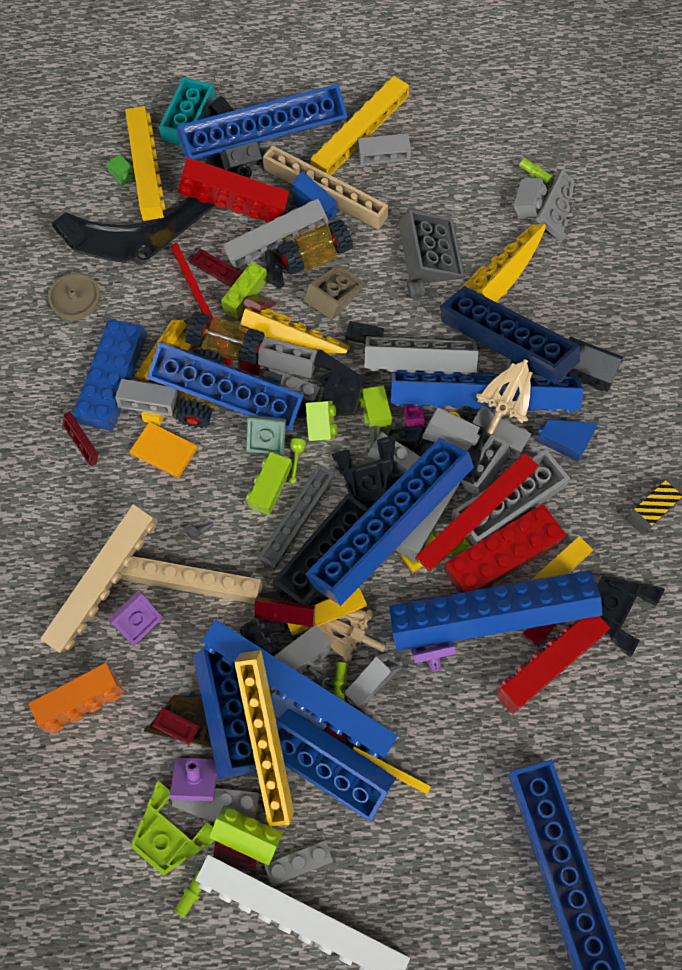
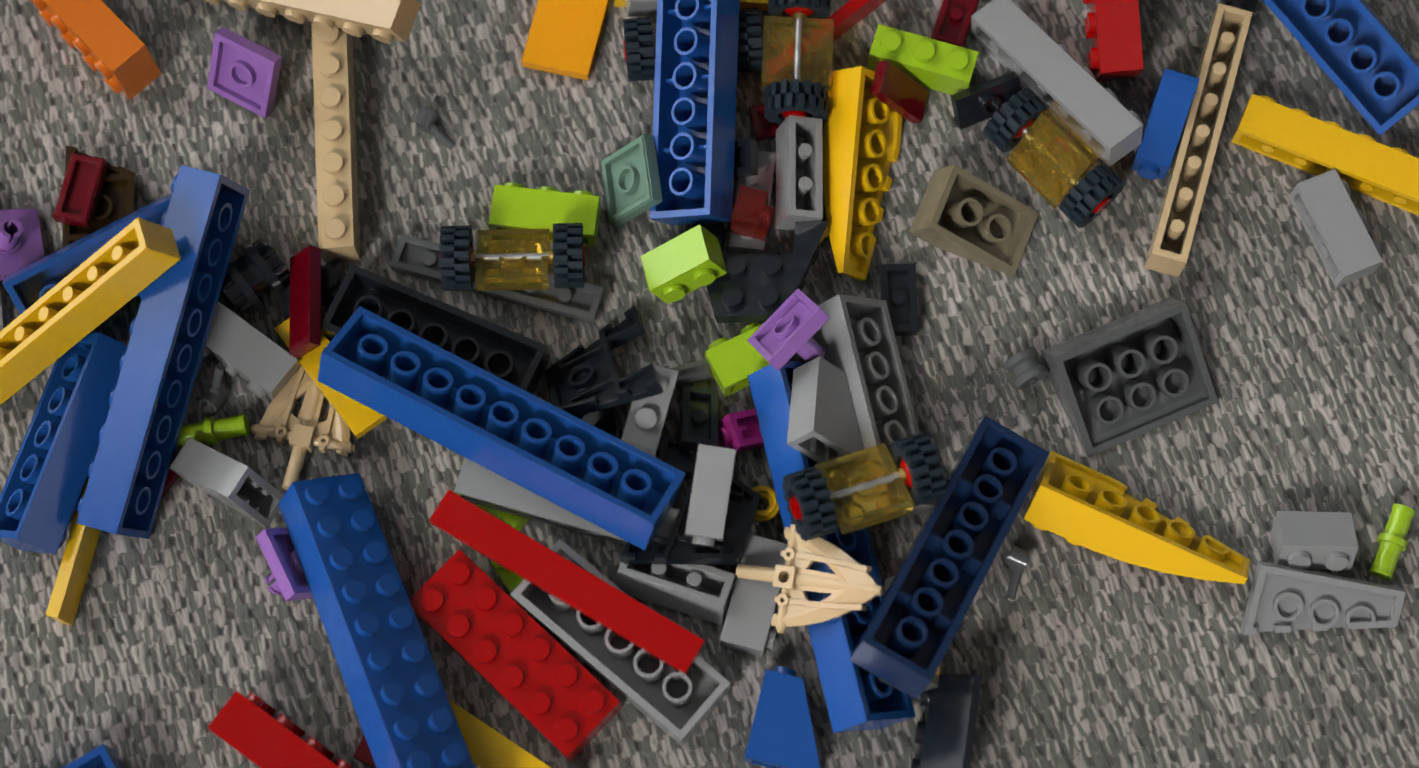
camera: 75 degrees right, 5 degrees up
(294, 498) = (511, 258): none -> plate
(297, 447) = (630, 243): lime hinge -> none
(305, 379) = (752, 213): none -> clear red brick
(377, 372) = (790, 331): none -> medium lavender tile
(425, 369) = (822, 412): none -> light grey slope
(471, 355) = (864, 487): none -> plate

